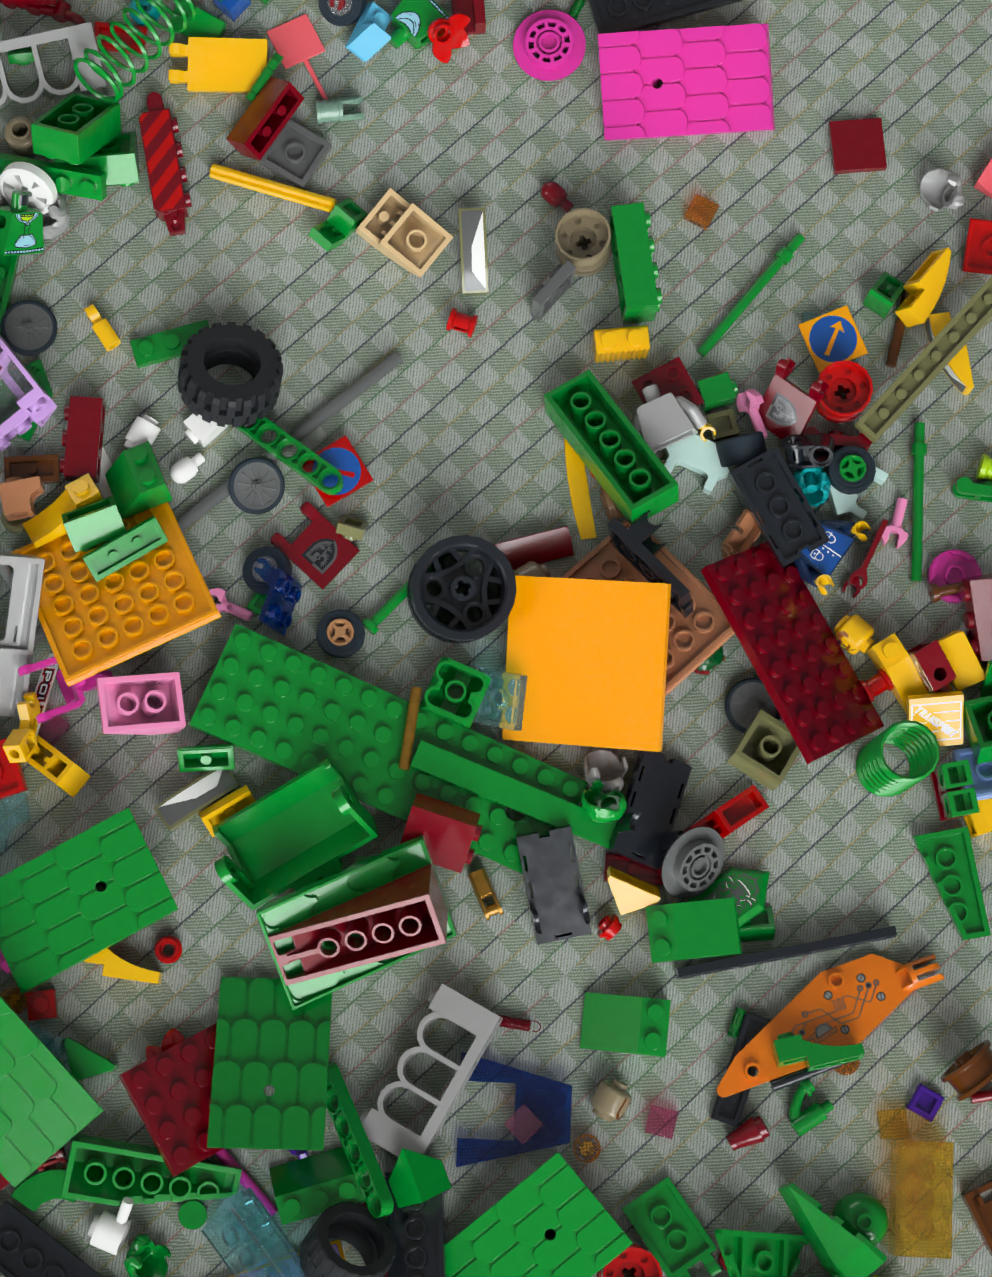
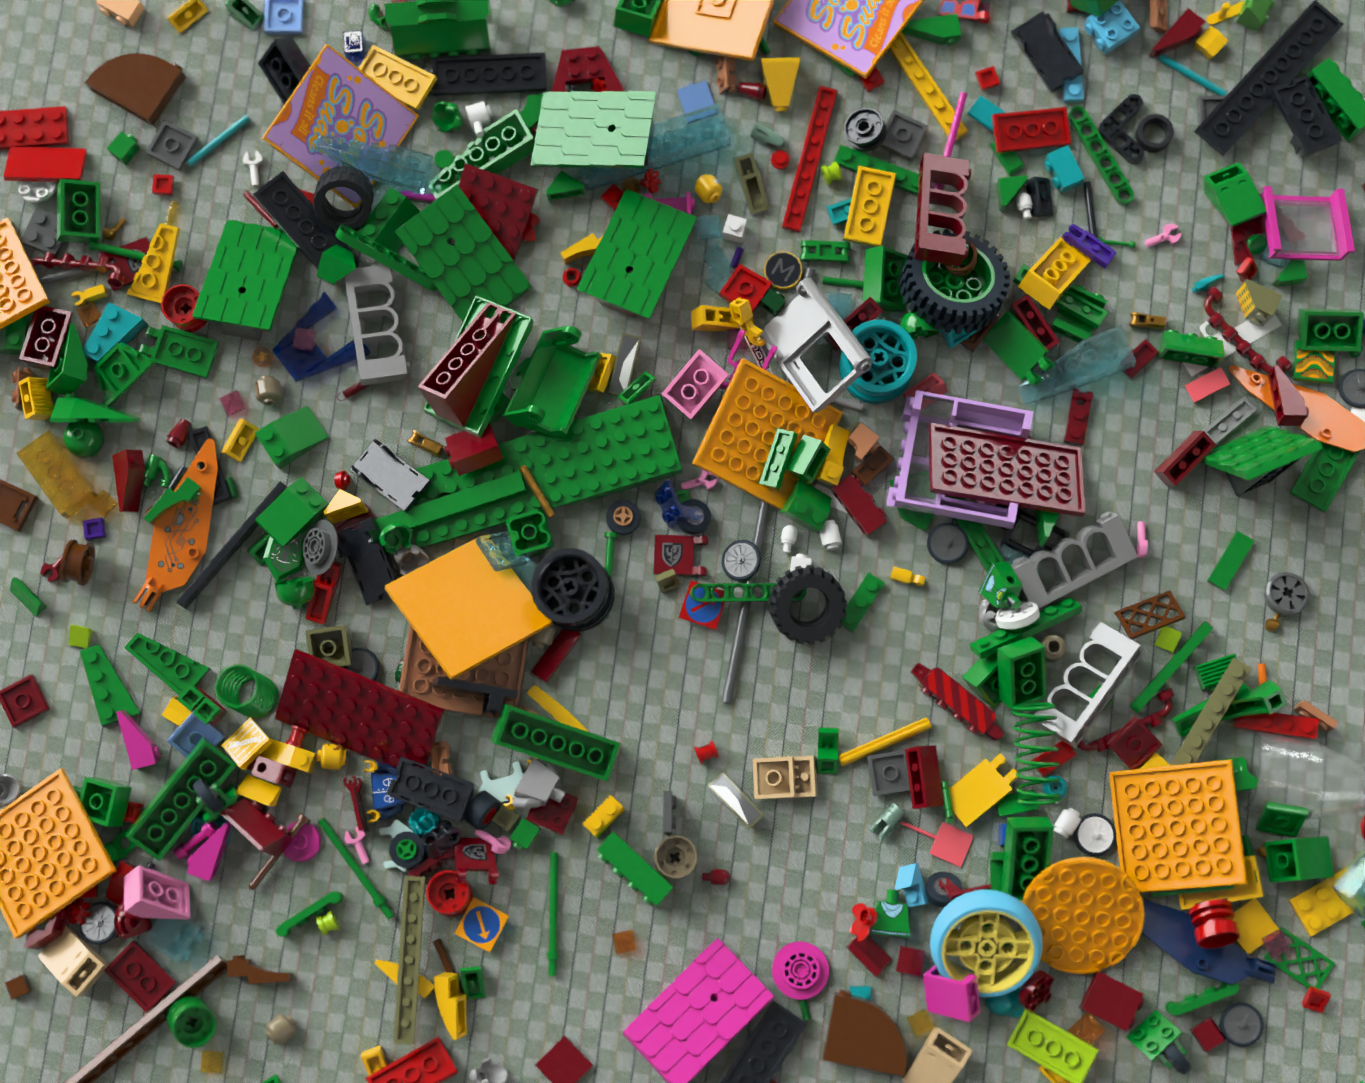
camera: 150 degrees right, 0 degrees up
(686, 1071) = (240, 440): none -> yellow slope
(755, 842) = (295, 591): none -> green cylinder
(844, 1125) = (129, 479): none -> dark red slope

